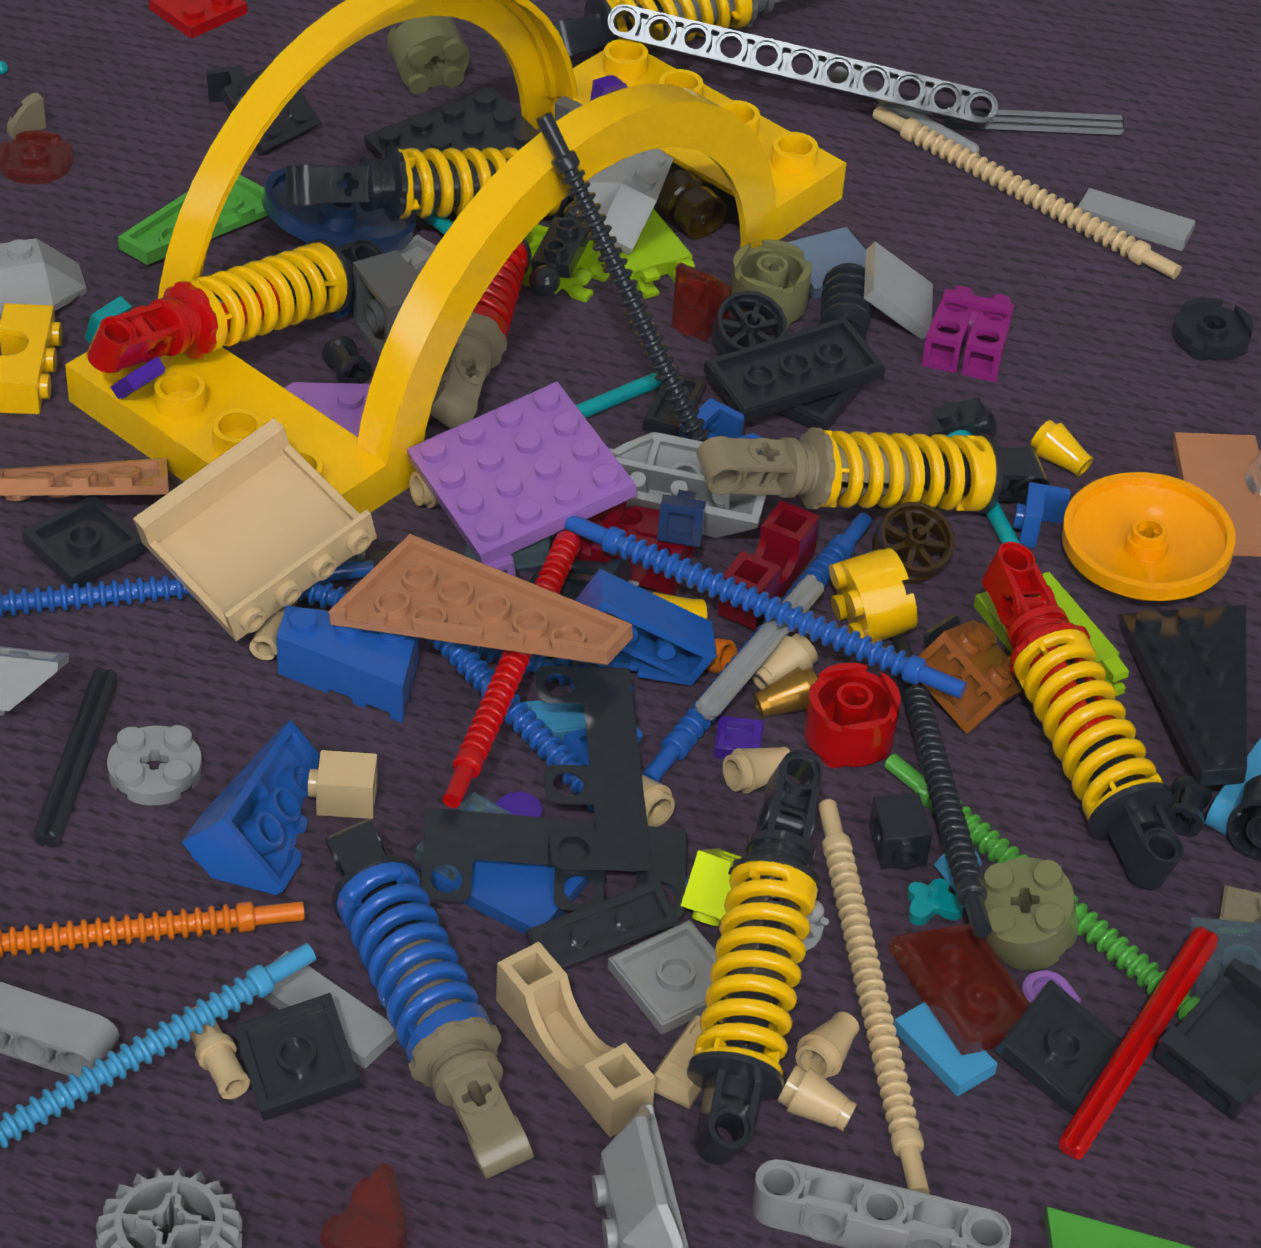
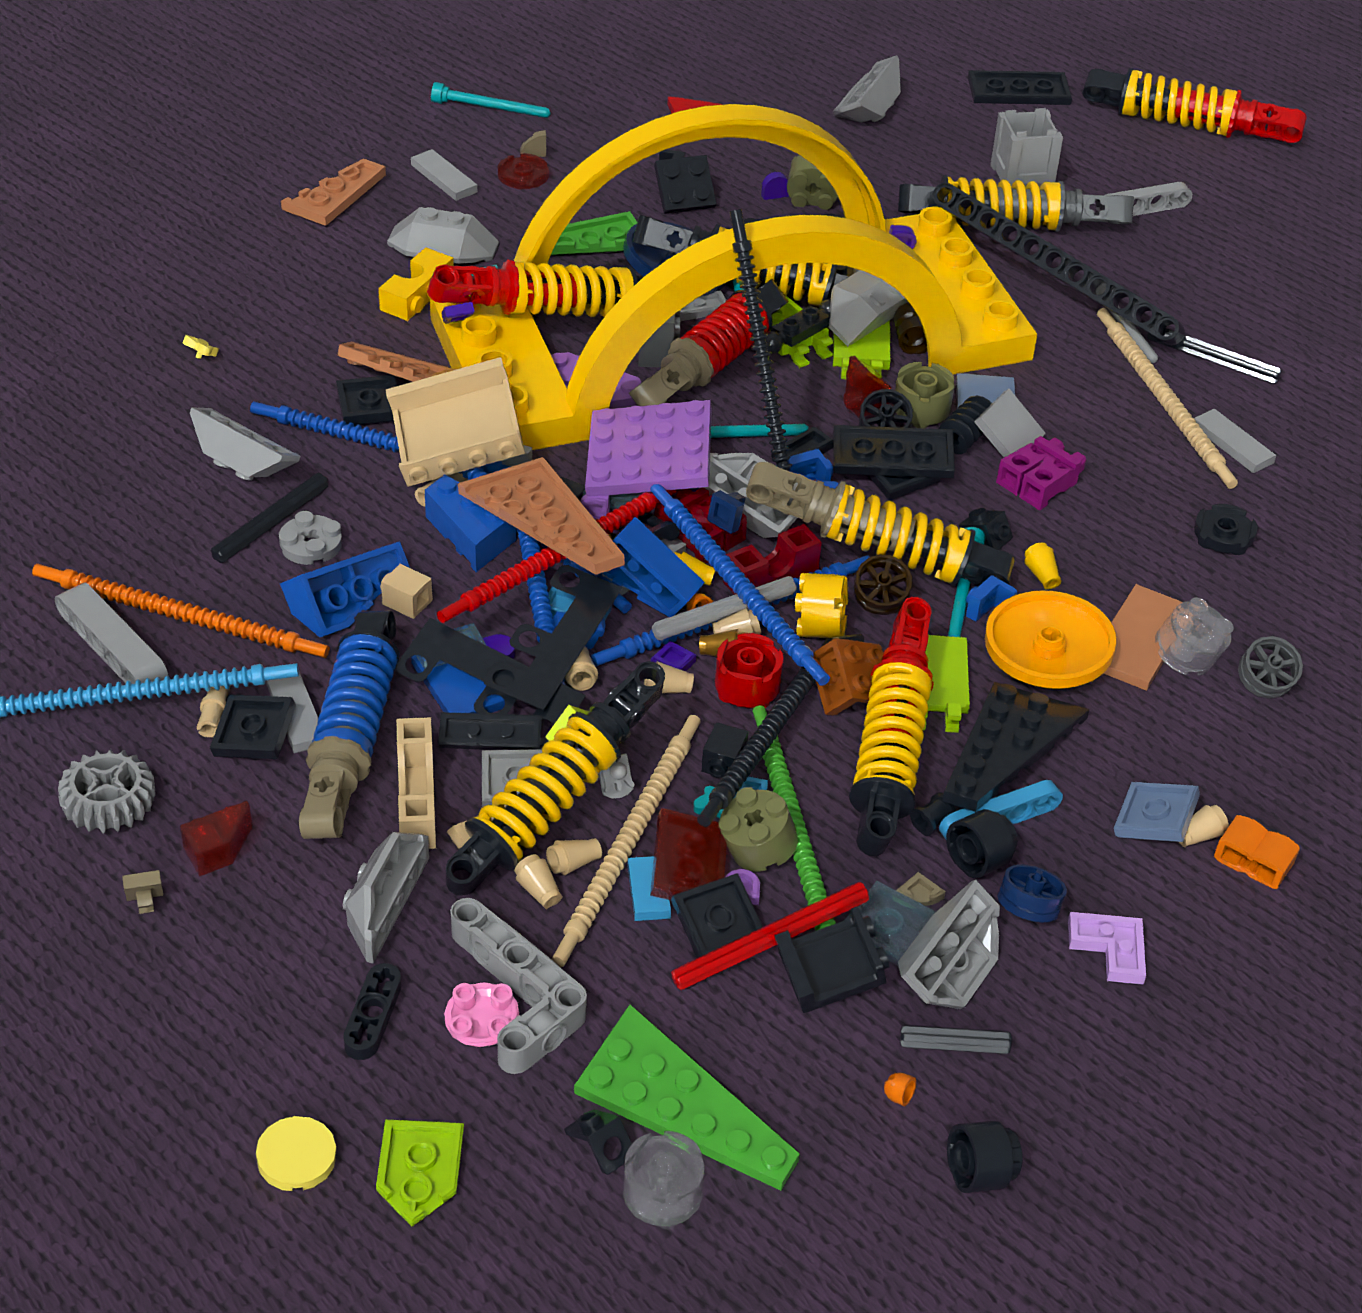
camera: 30 degrees right, 0 degrees up
(378, 76) = (774, 186): none -> dark purple tile

